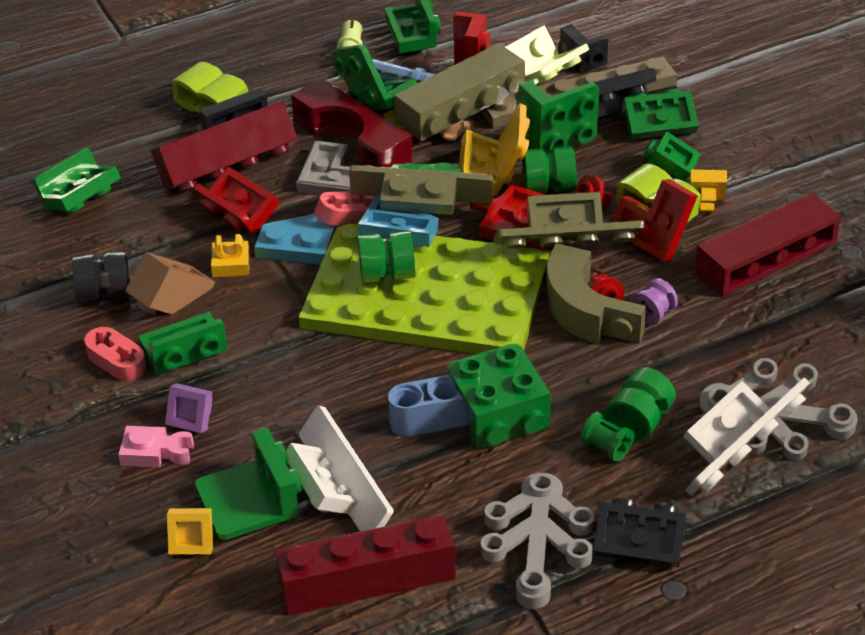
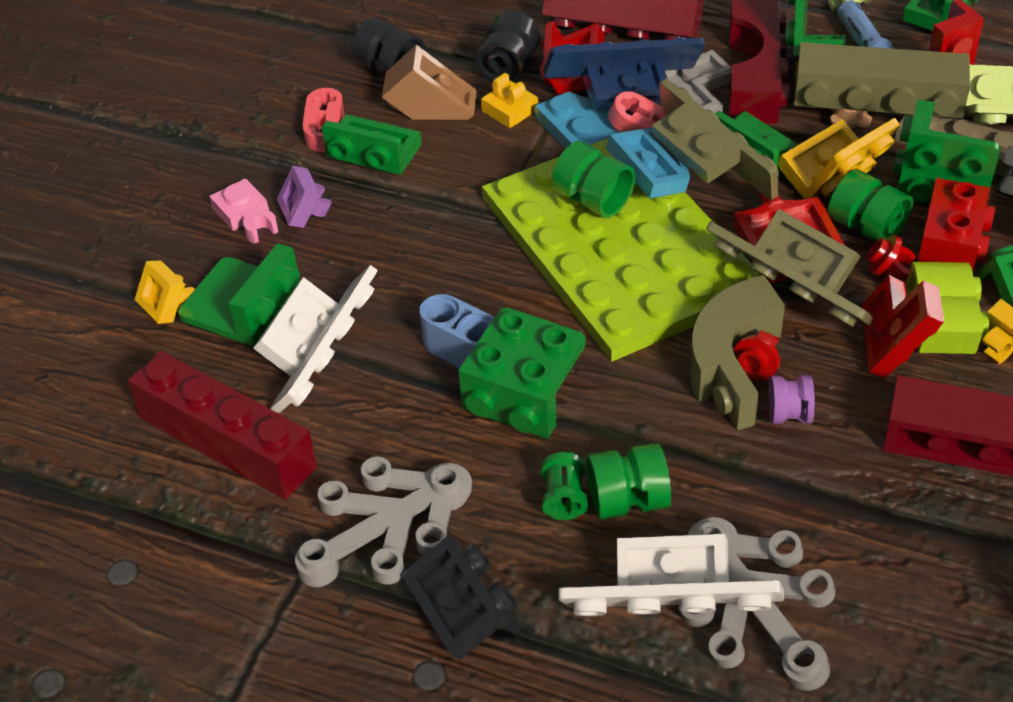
camera: 50 degrees right, 5 degrees up
(184, 221) = (507, 46): none -> black wheel
(297, 185) = (623, 66): none -> dark blue bracket
(603, 151) = (956, 223): none -> red brick

